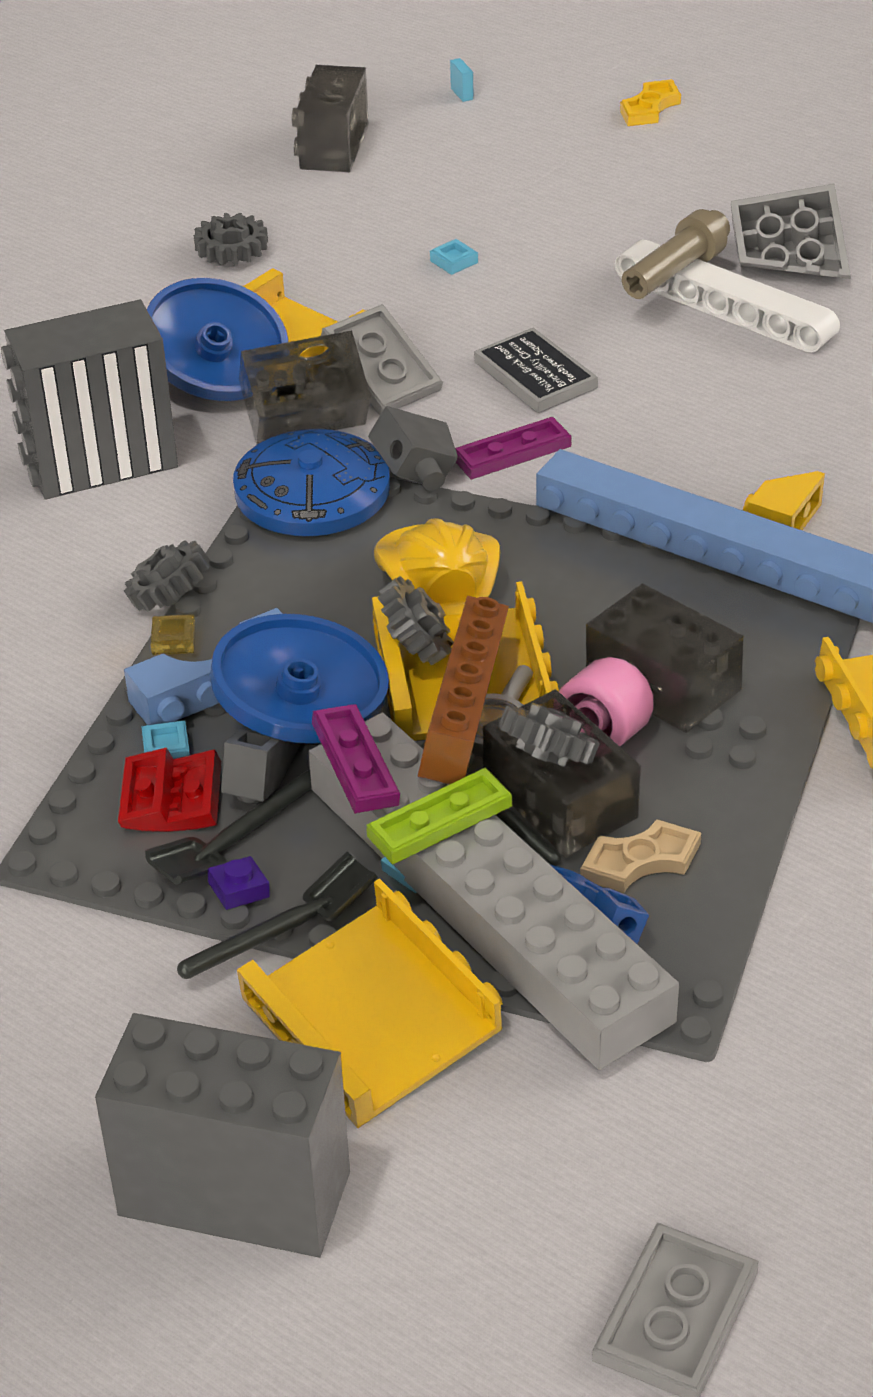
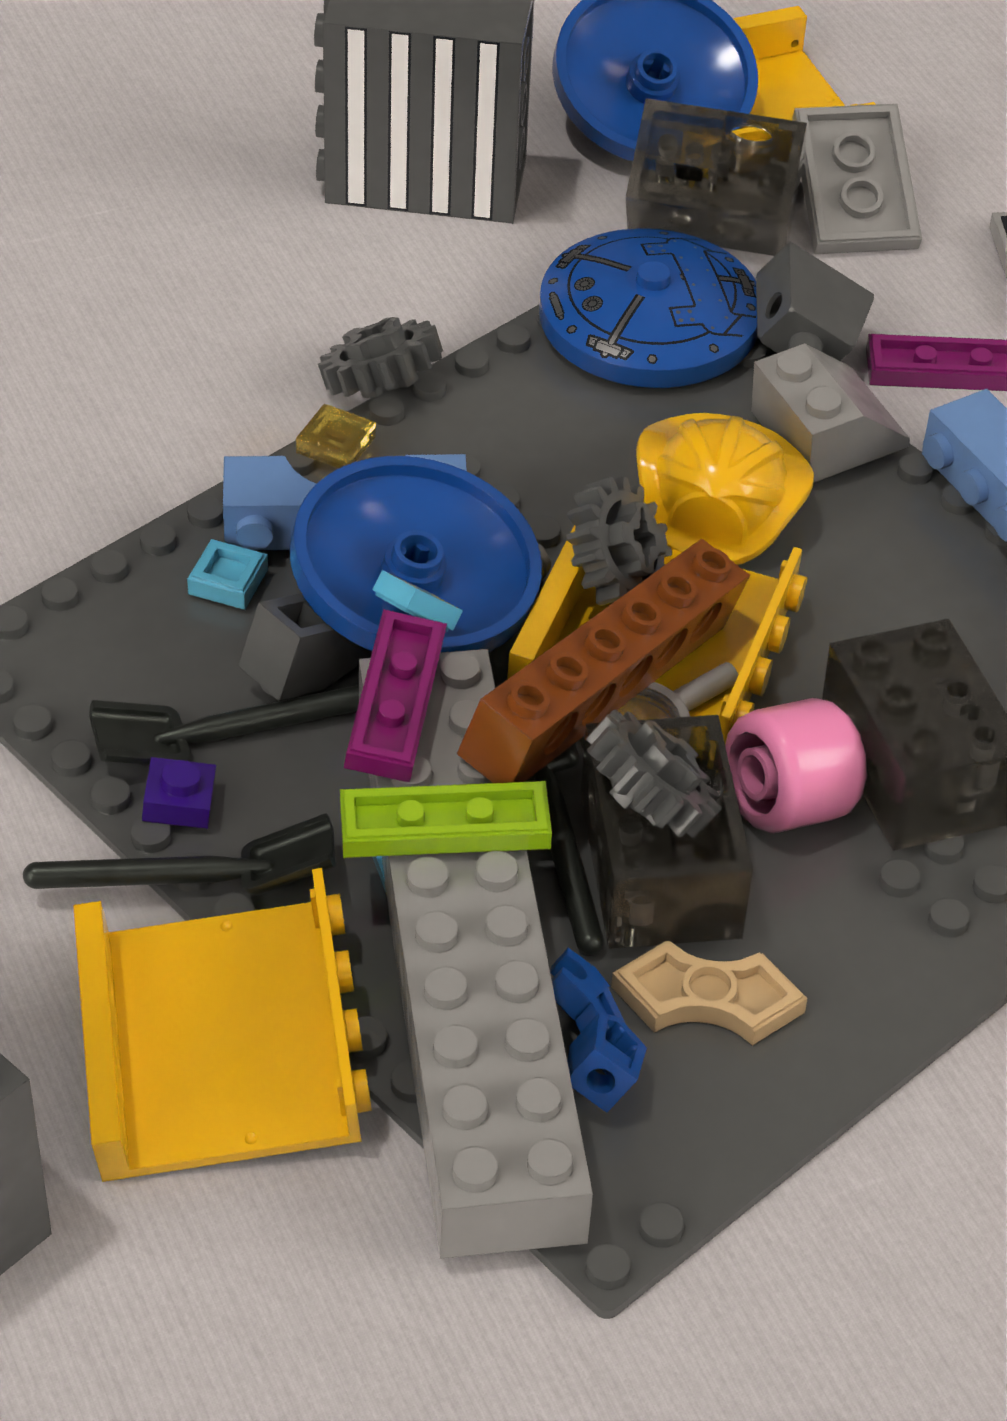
camera: 25 degrees right, 5 degrees up
(170, 792) = (181, 638): red slope -> none
(322, 698) = (415, 600): none -> medium azure tile
(464, 500) = (823, 410): none -> light grey slope

